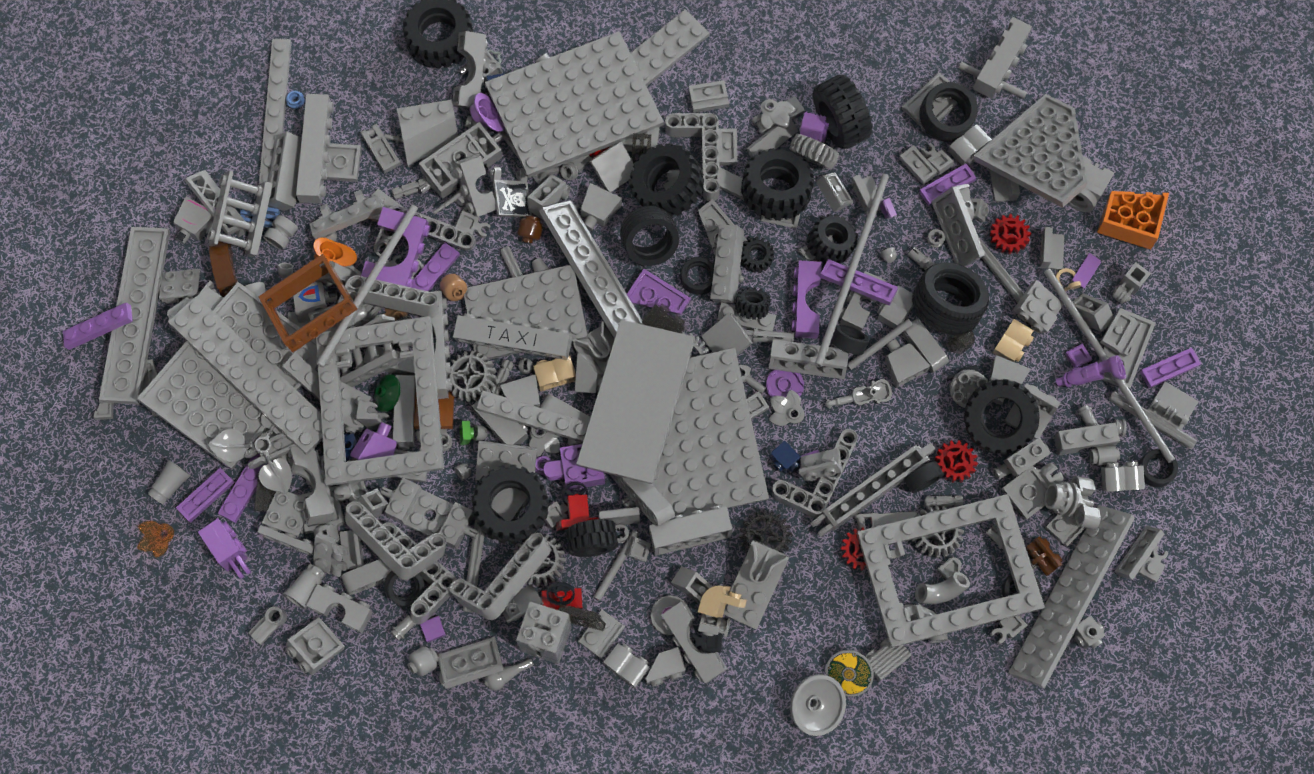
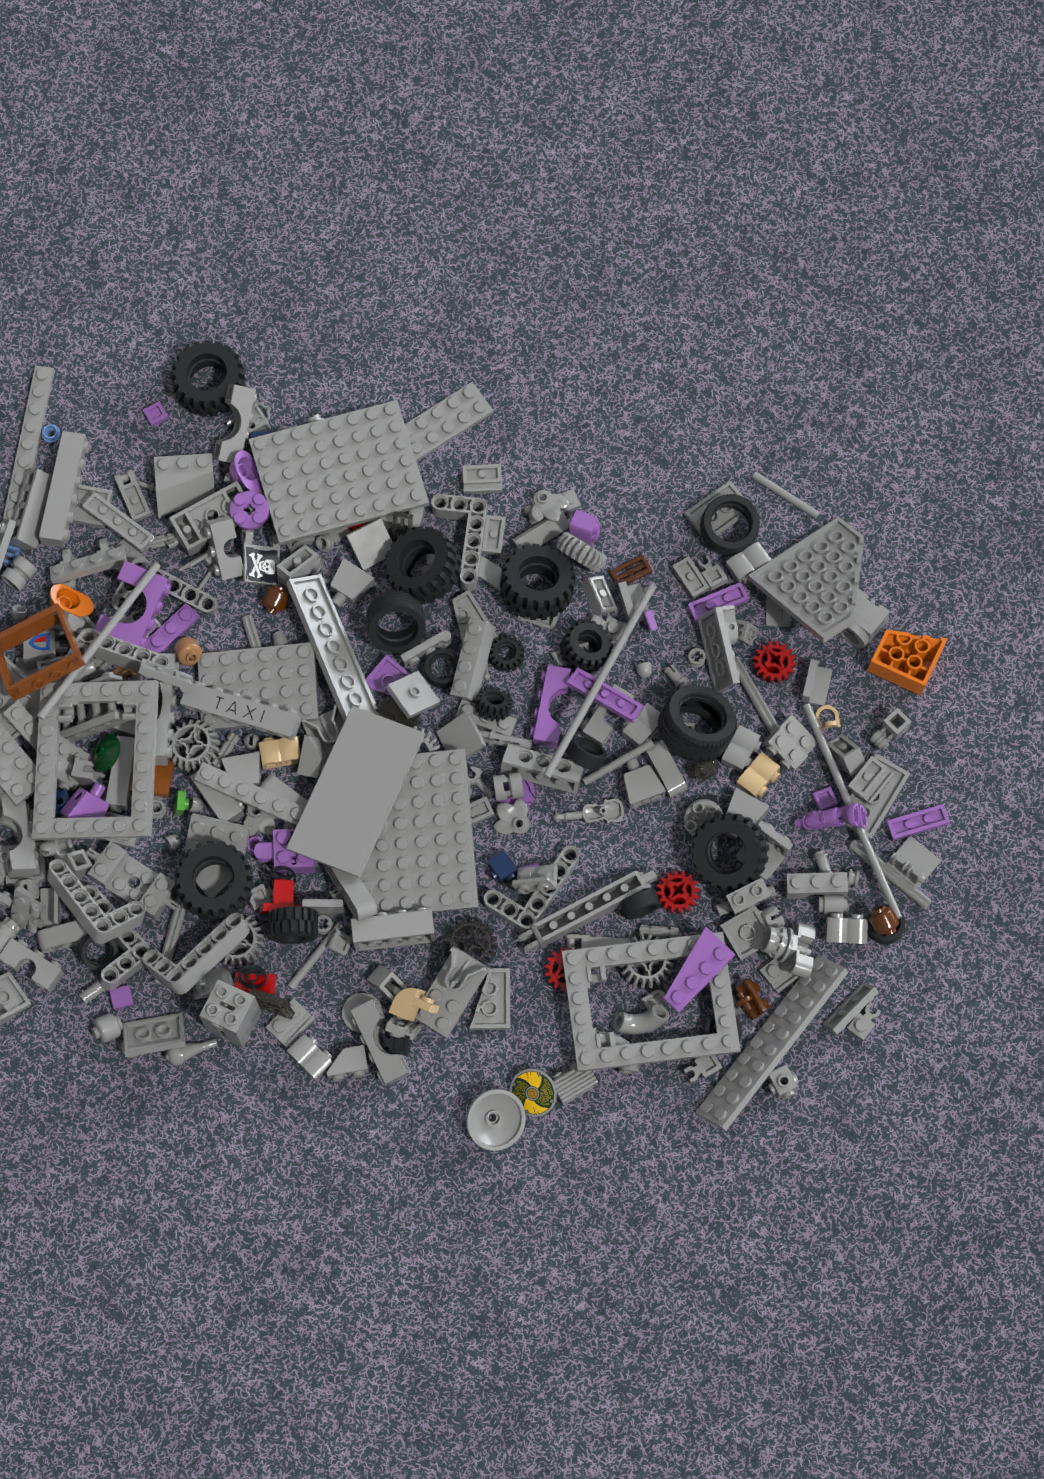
camera: 10 degrees right, 0 degrees up
(370, 173) = (118, 522): none -> light grey plate
(392, 71) = (155, 413): none -> medium lavender tile
(437, 310) = (166, 675): none -> light grey plate
(470, 223) = (214, 586): light grey plate -> none
(493, 137) = (257, 517): none -> medium lavender plate
(669, 267) = (414, 655): none -> light grey plate
(675, 303) = (413, 694): none -> light grey plate
(786, 379) = (515, 786): none -> light grey wheel
(797, 589) = (494, 1004): none -> light grey wing
(844, 111) = (615, 513): black tyre -> none
(848, 174) = (628, 564): none -> reddish brown tile
(855, 217) = (612, 625): none -> light grey plate
(993, 319) = (741, 748): none -> light grey brick
(995, 529) = (701, 966): none -> medium lavender wing
(1003, 58) = (797, 474): light grey wedge -> none
(1087, 270) = (849, 710): medium lavender sticker -> none
(1159, 464) = (884, 920): none -> reddish brown head

